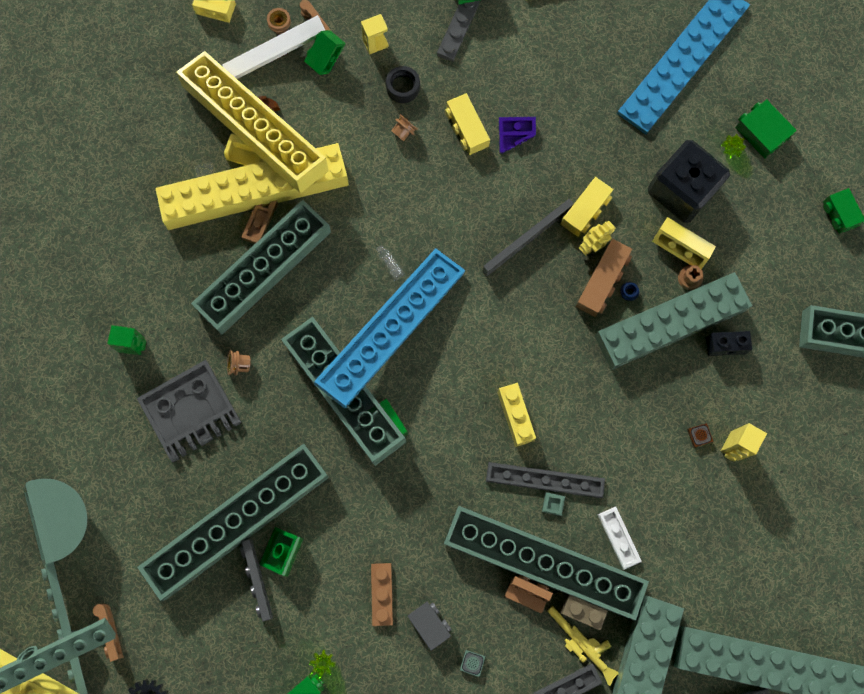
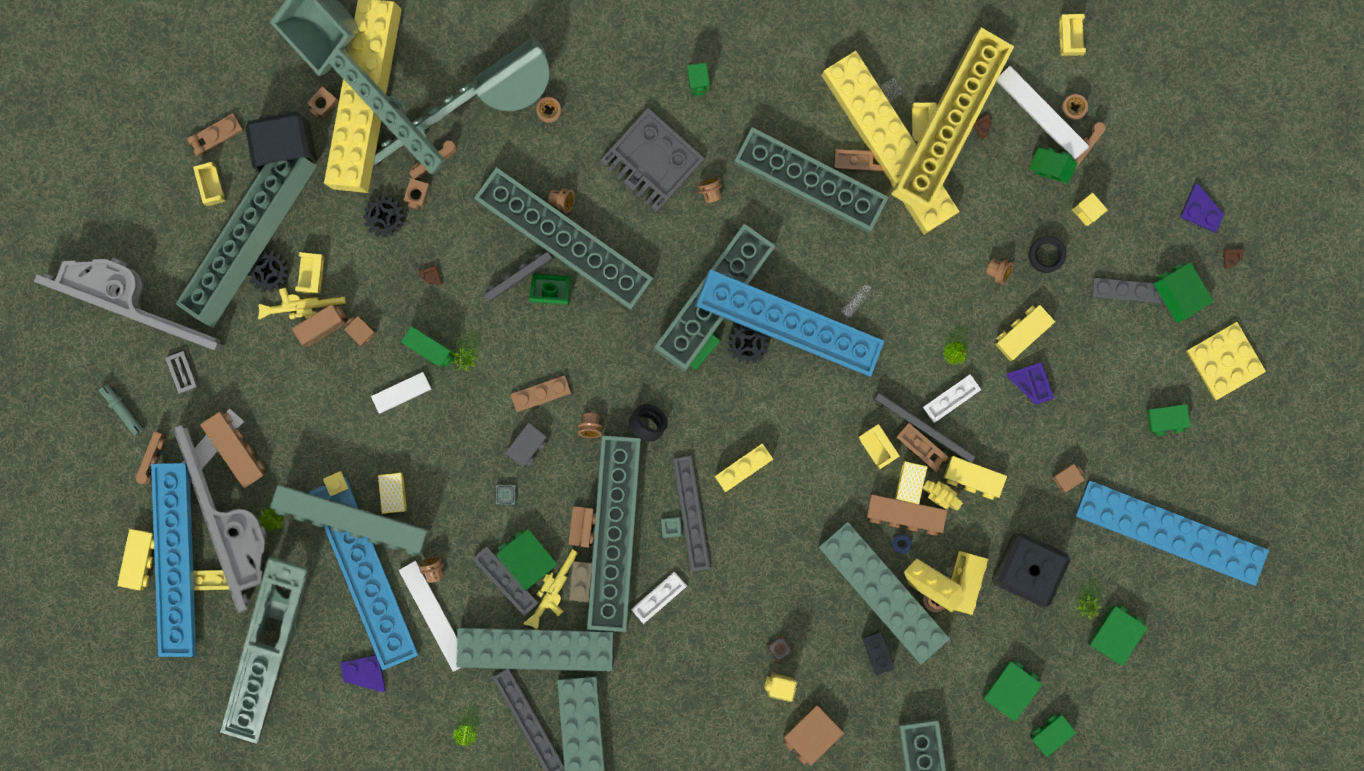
camera: 75 degrees right, 10 degrees up
(96, 492) = (551, 103): none -> piece
(127, 656) = (413, 186): none -> medium nougat brick
(195, 510) = (562, 200): none -> medium nougat piece
(224, 671) = (431, 275): none -> reddish brown tile
(389, 377) = (754, 350): none -> black gear
(430, 553) = (590, 426): none -> medium nougat piece
(437, 486) = (654, 414): none -> black tyre
(467, 189) = (955, 353): none -> clear neon green gear
(508, 205) = (951, 398): none -> white plate
(533, 283) = (878, 446): none -> light yellow panel
(544, 245) = (921, 447): none -> medium nougat plate
(545, 662) = (525, 559): none -> green brick
(575, 264) = (911, 482): none -> light yellow panel
(582, 29) = (1168, 418): none -> green brick
(611, 127) = (1069, 477): none -> medium nougat brick
(681, 269) = (934, 585): none -> light yellow brick
(793, 233) = (1012, 690): none -> green brick
(793, 429) = (812, 735): none -> medium nougat brick

